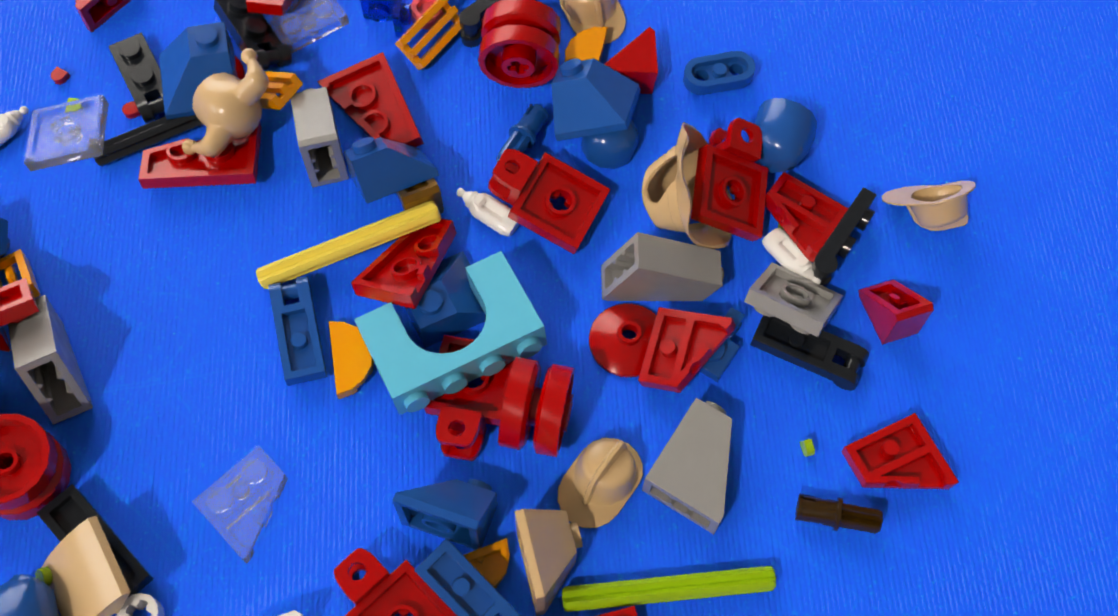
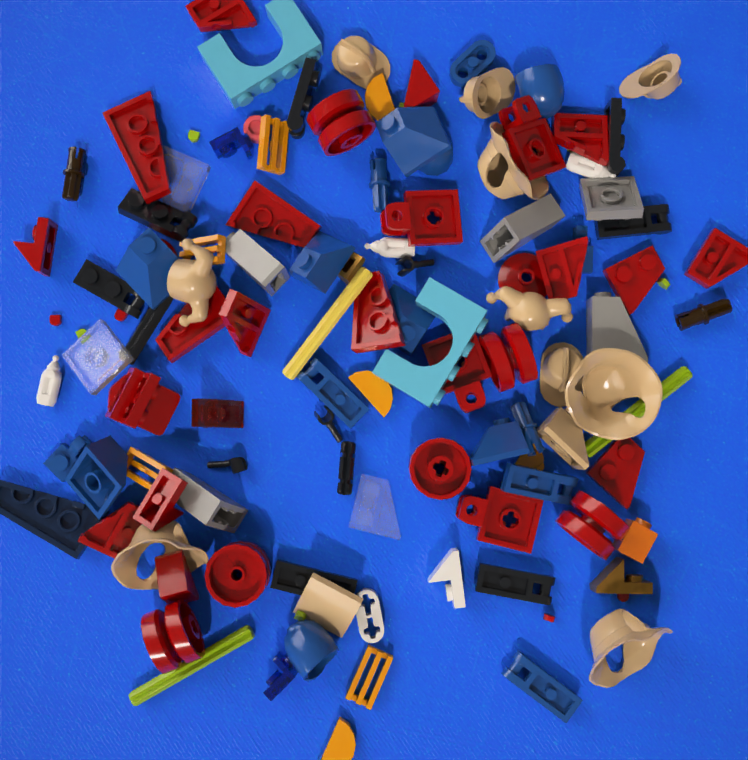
camera: 25 degrees left, 20 degrees up
(73, 207) = (141, 402): none -> red piece
(121, 343) = (237, 464): none -> black hand
(143, 267) = (217, 413): none -> clear red slope
(246, 428) = (346, 468): none -> black axle
(255, 183) = (243, 320): none -> red wing
(265, 364) = (328, 421): none -> black hand
(342, 474) = (455, 473): none -> red wheel
(496, 239) = (409, 265): none -> black hand
(503, 518) = (528, 427): none -> blue axle
(608, 368) = (530, 308): none -> tan piece
(656, 521) = (608, 379): none -> tan piece
(715, 103) = (489, 92): none -> tan piece
(772, 416) = (634, 277): none -> red wing
(895, 310) = (667, 166): slope -> none

